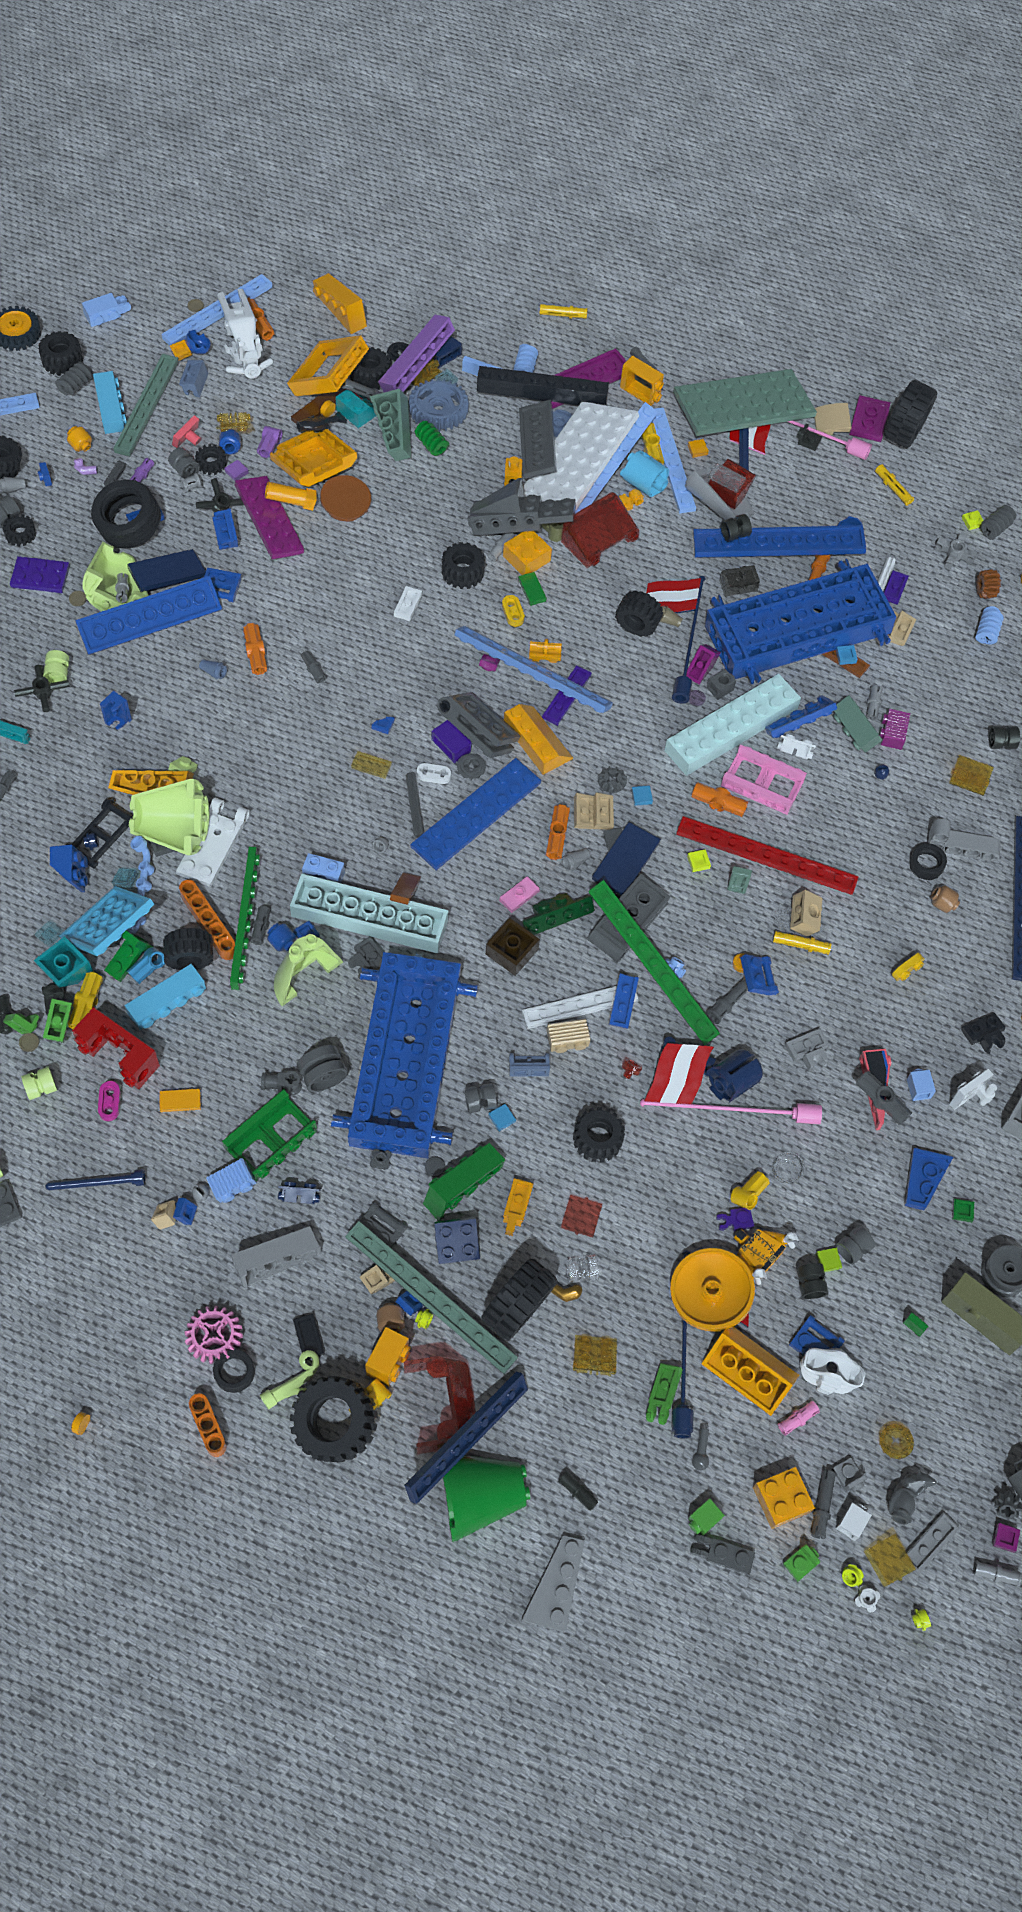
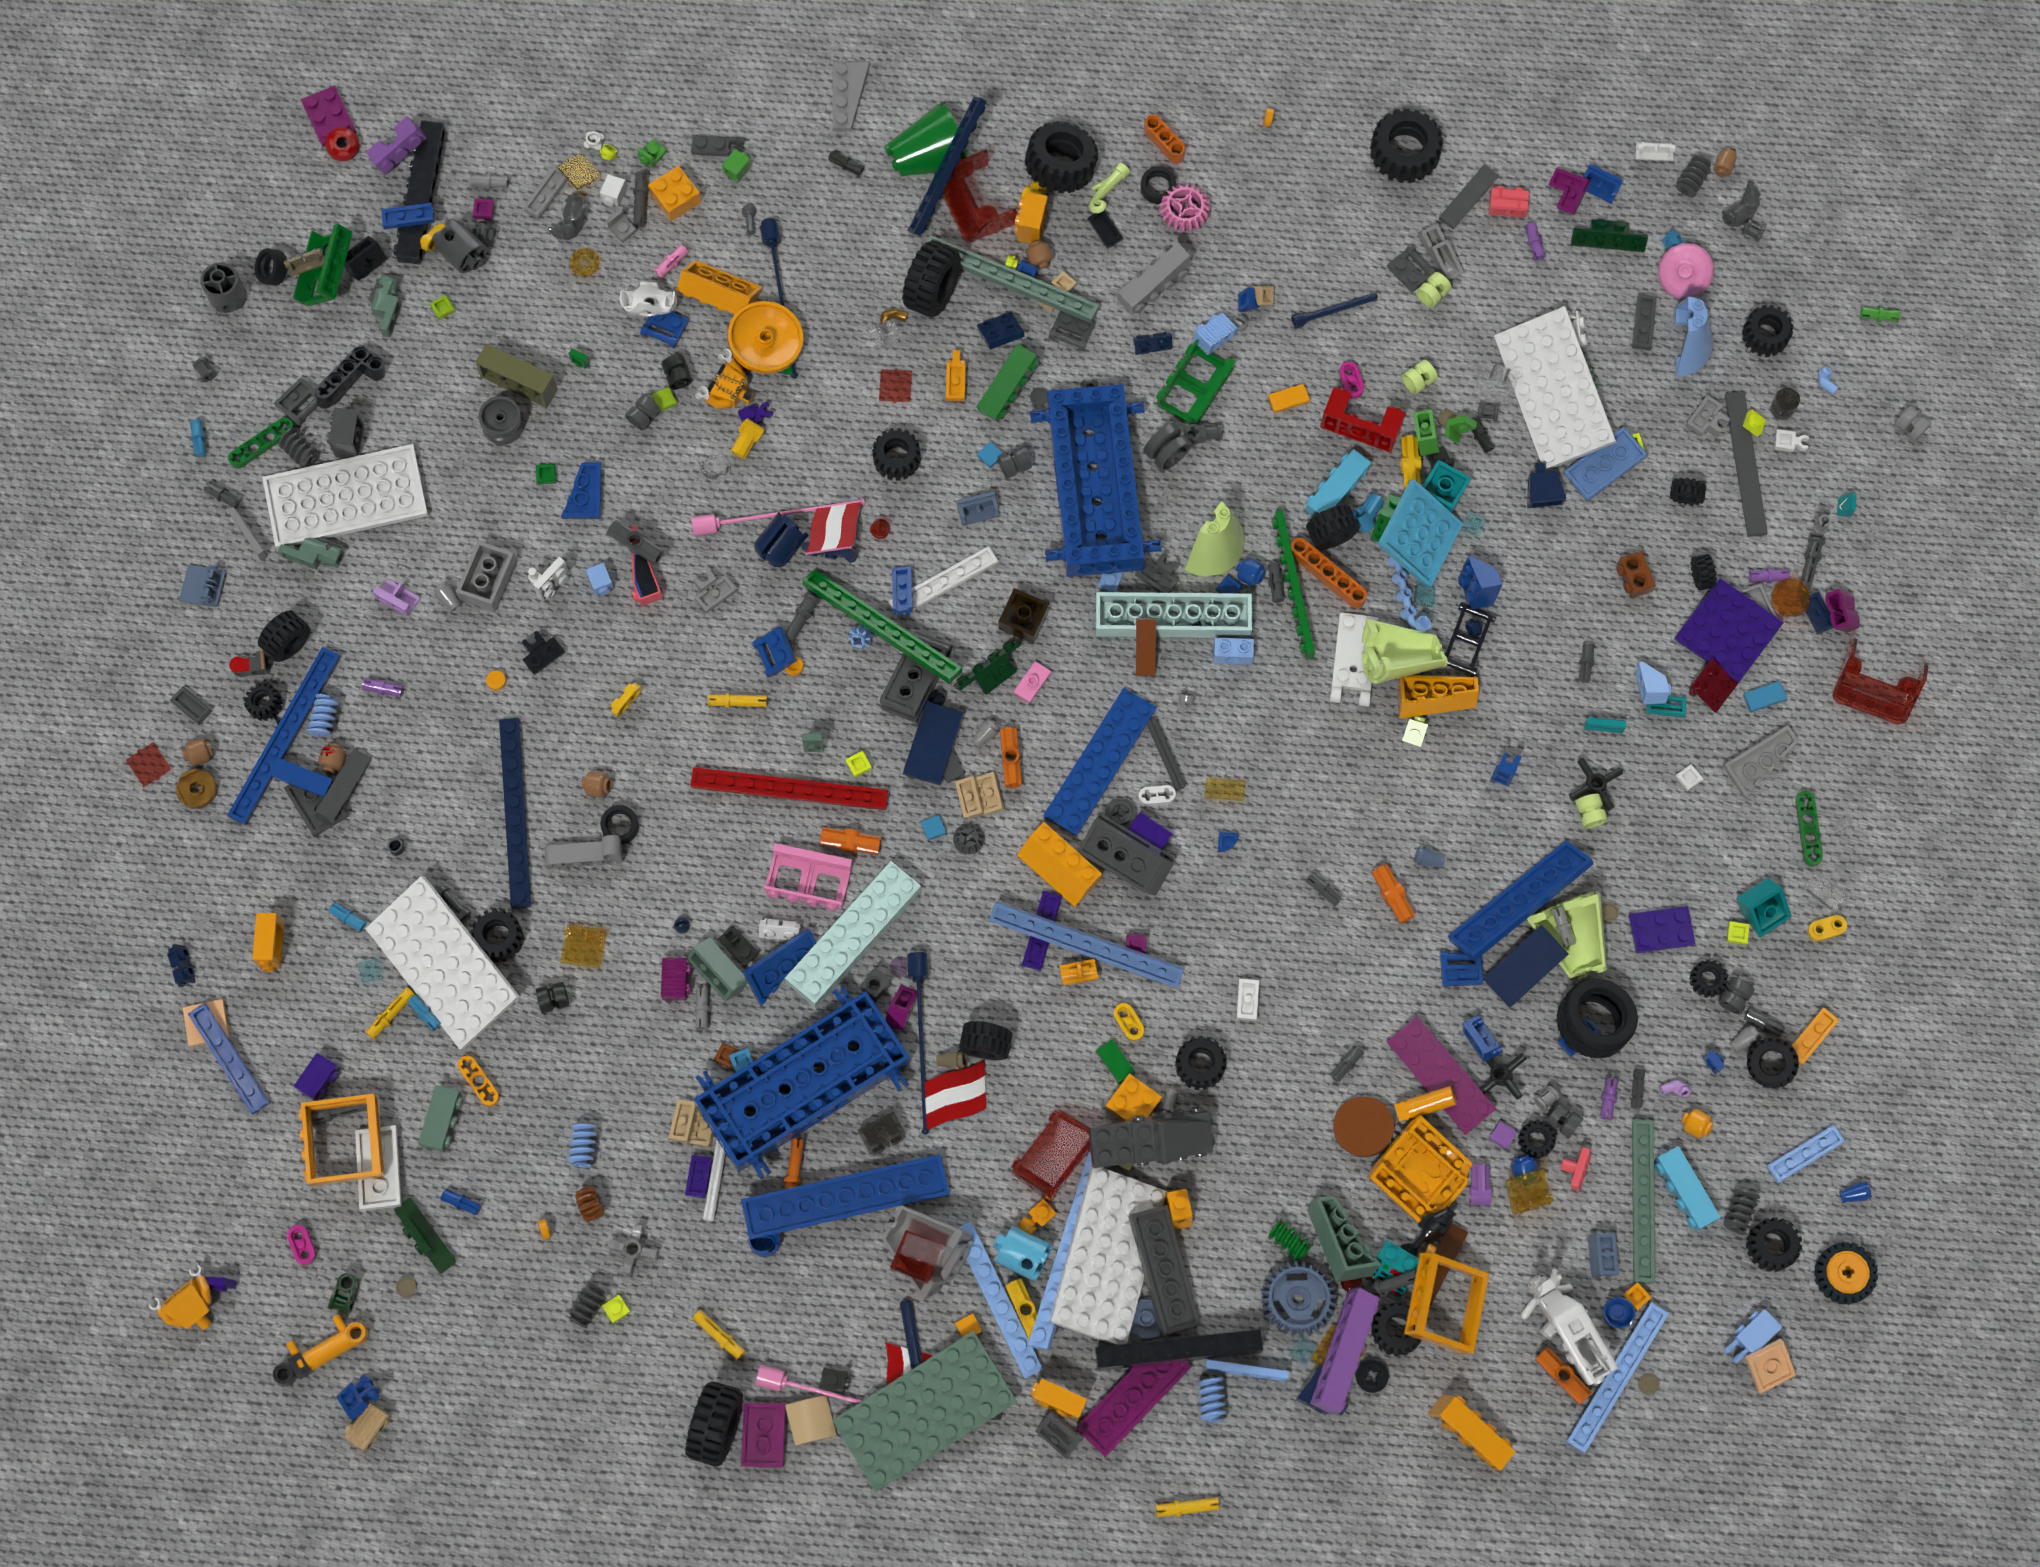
camera: 170 degrees right, 10 degrees up
(101, 287) = (1770, 1366): none -> light nougat tile
(342, 543) = (1346, 1064): none -> dark grey axle
(568, 1035) = (947, 544): tan brick -> none
(595, 1355) = (856, 269): clear yellow hinge -> none
(663, 1392) = (790, 253): bright green hinge -> none
(736, 527) = (905, 1187): pearl dark grey wheel -> none
(806, 913) = (738, 728): tan brick -> none
(834, 744) = (738, 946): none -> pearl dark grey plate
(921, 1619) = (548, 134): neon yellow plate -> none

